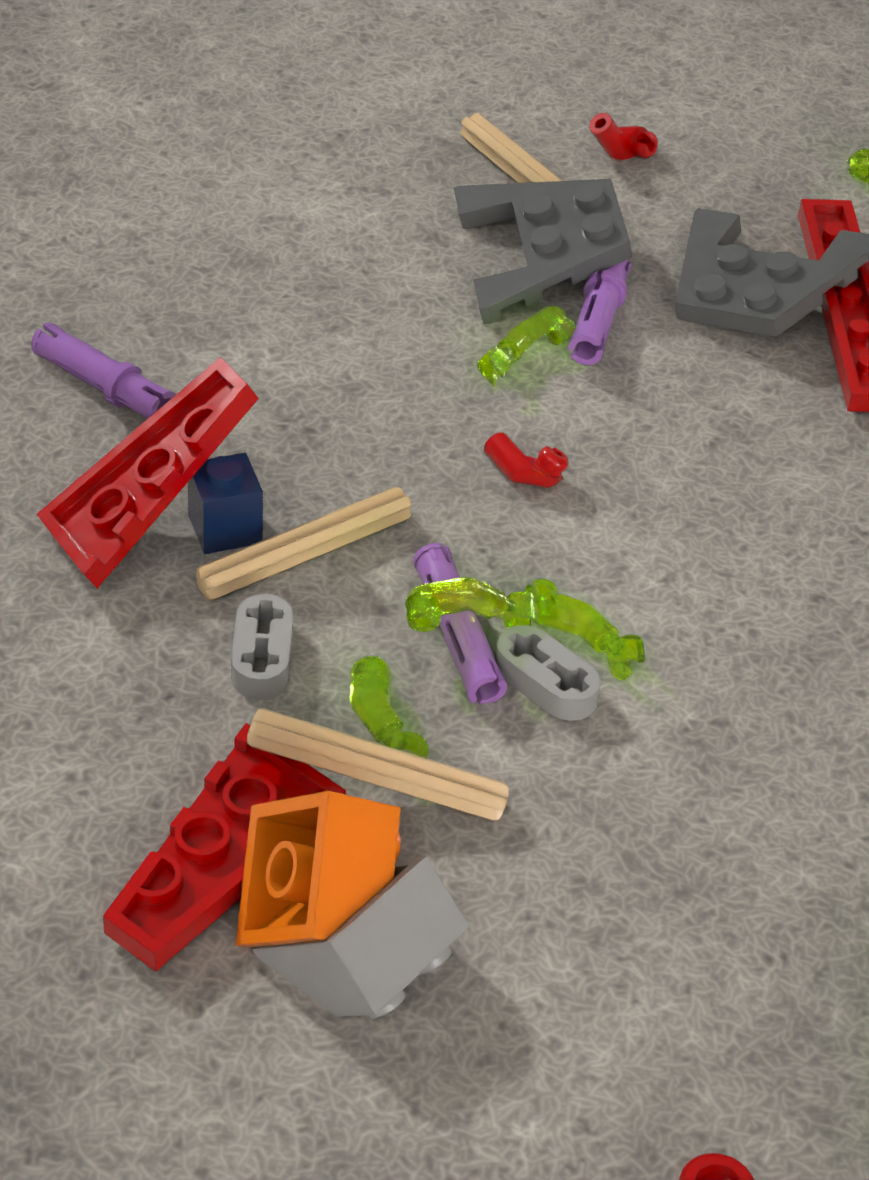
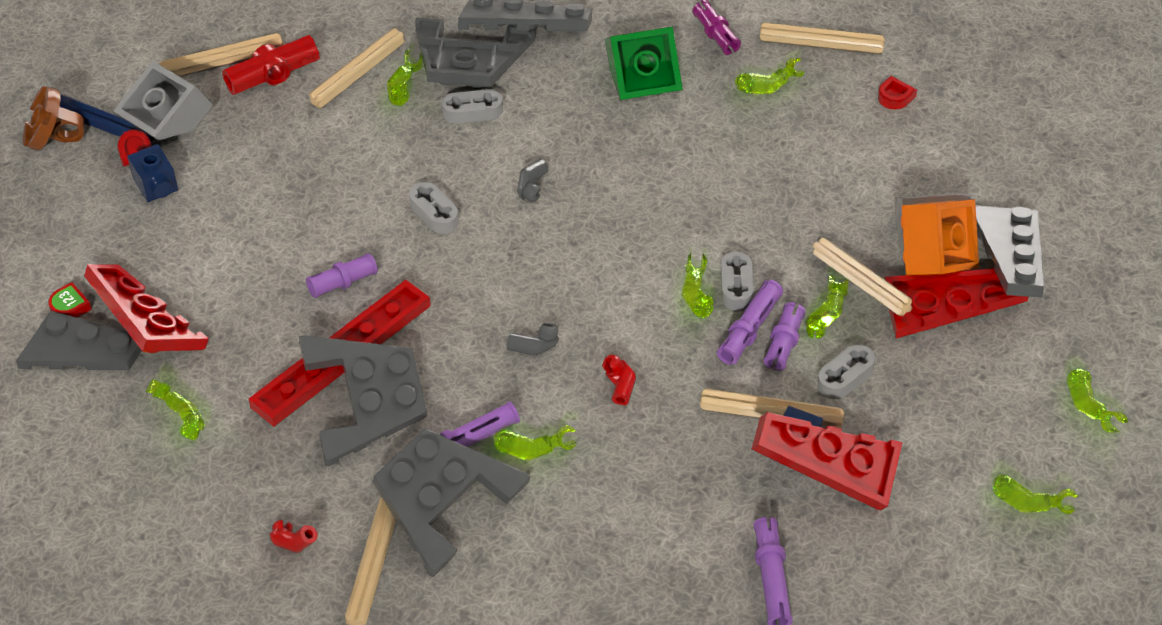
camera: 130 degrees left, 5 degrees up
(207, 986) = (1014, 246): none -> wing
(390, 632) = (784, 336): none -> medium lavender pin
(432, 600) = (752, 306): clear neon green arm -> none
(672, 441) = (537, 344): none -> dark grey arm

